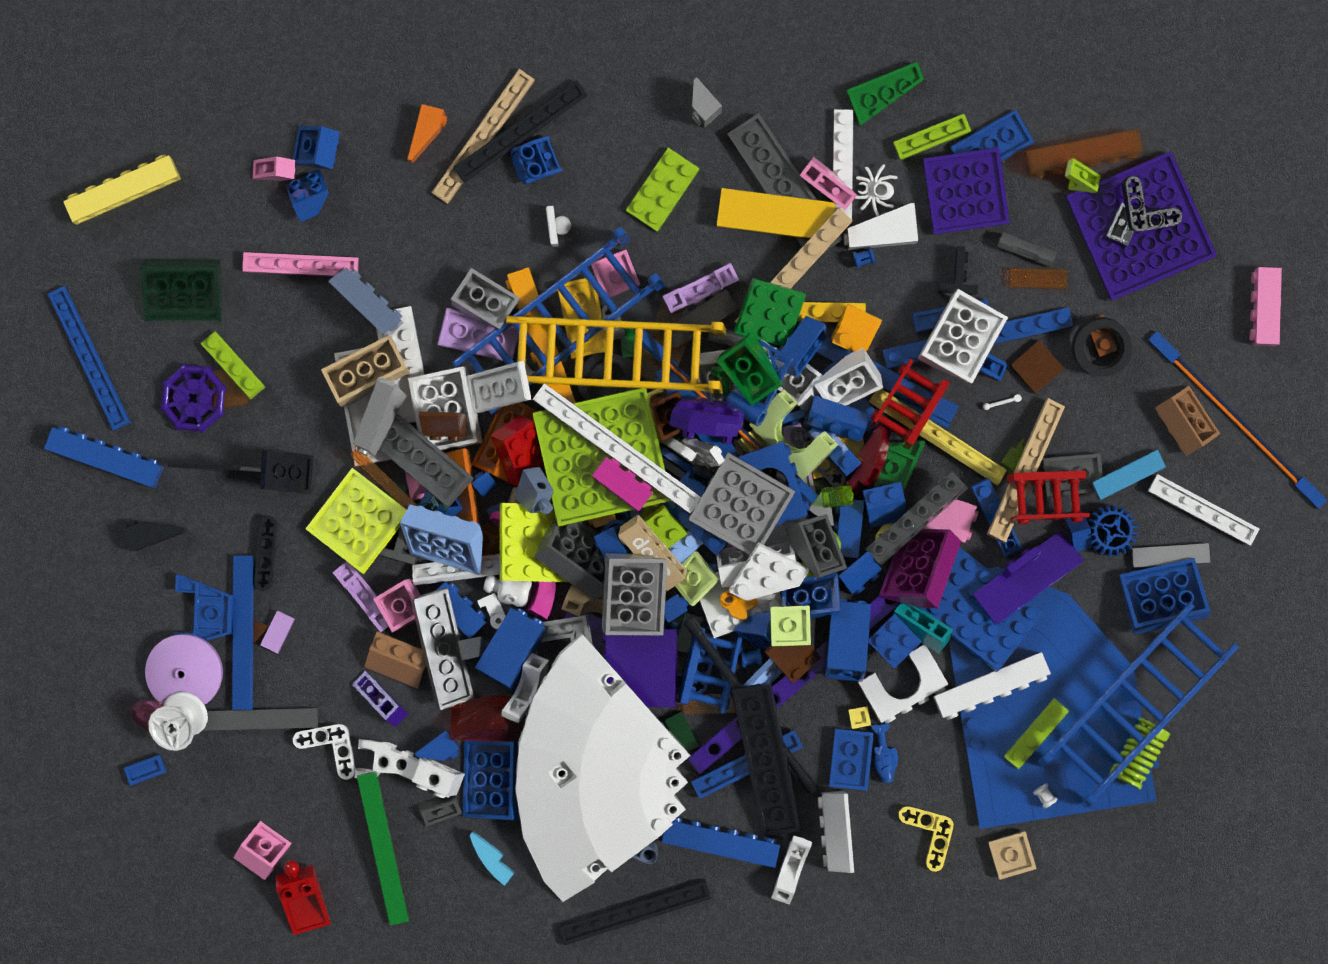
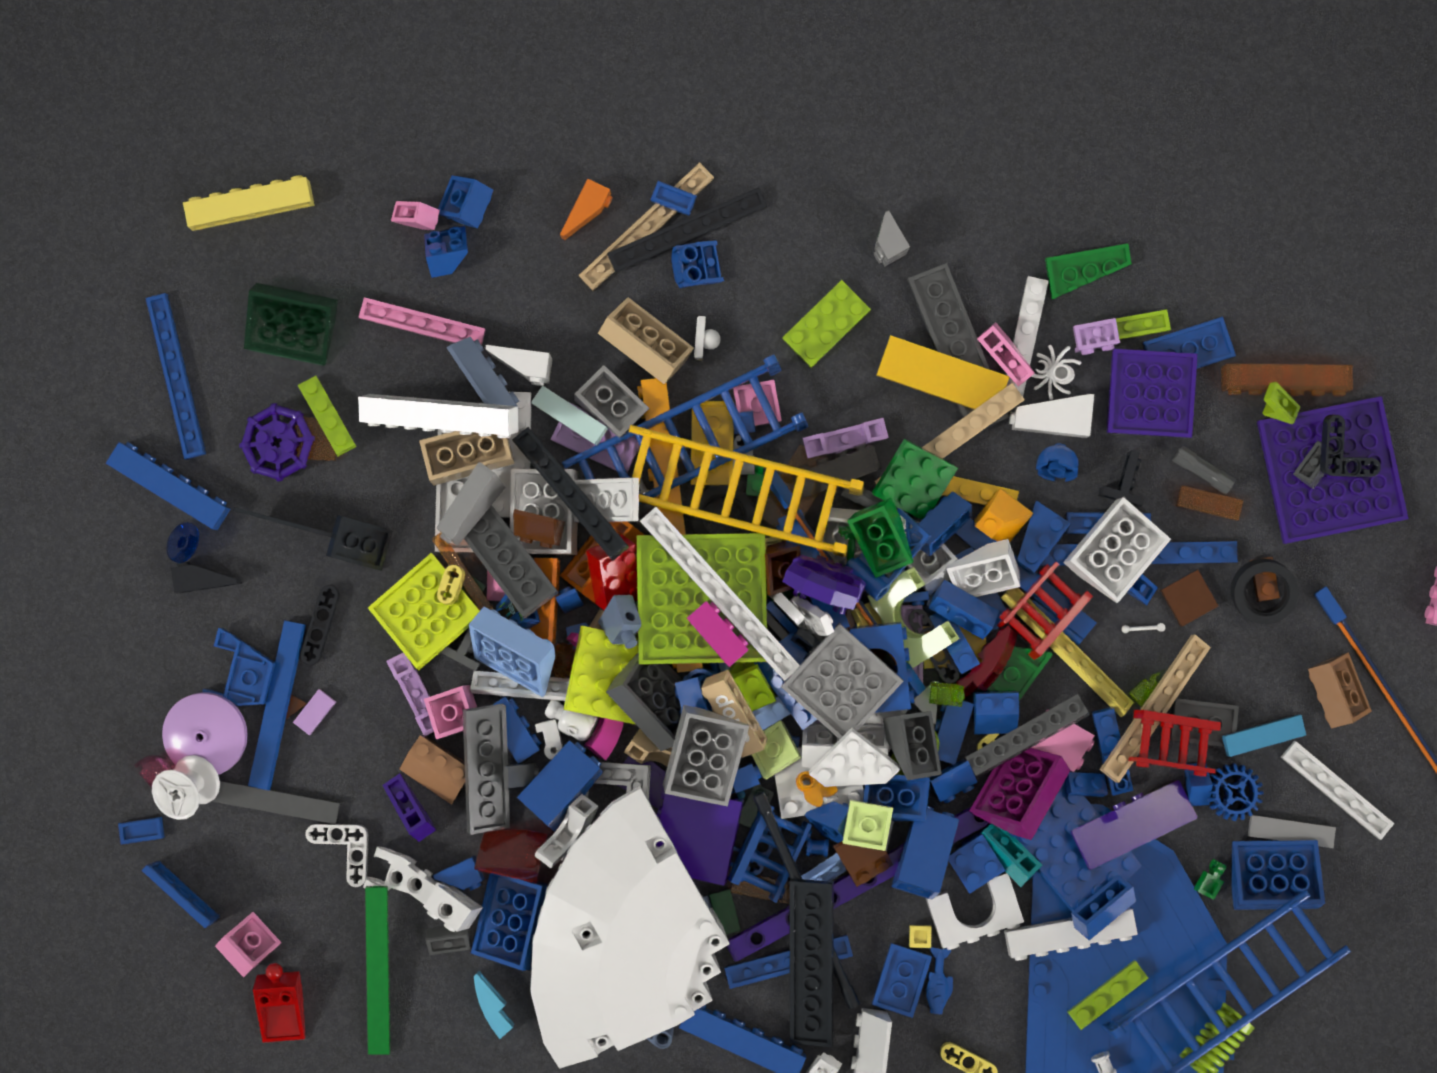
camera: 10 degrees right, 0 degrees up
(127, 505) = (182, 542): none -> clear blue dish
(193, 817) = (181, 893): none -> blue tile
(333, 342) = (438, 414): none -> white brick
(377, 492) = (452, 587): none -> light yellow beam
(403, 281) = (529, 364): none -> white slope
(450, 319) = (569, 415): none -> light aqua tile
(465, 388) = (570, 494): none -> black tile
(502, 105) = (673, 198): none -> blue tile
(504, 238) = (645, 340): none -> tan brick
(611, 291) = (748, 420): none -> blue tile
(864, 257) = (1027, 441): blue bush -> none
(893, 340) = (1041, 537): none -> blue wing
(894, 270) = (1057, 462): none -> blue cylinder
(905, 150) = (1095, 336): none -> lavender bracket
(978, 551) = (1086, 784): none -> blue plate
(1014, 655) = (1103, 907): none -> blue brick
(1106, 616) = (1209, 883): none -> green plate

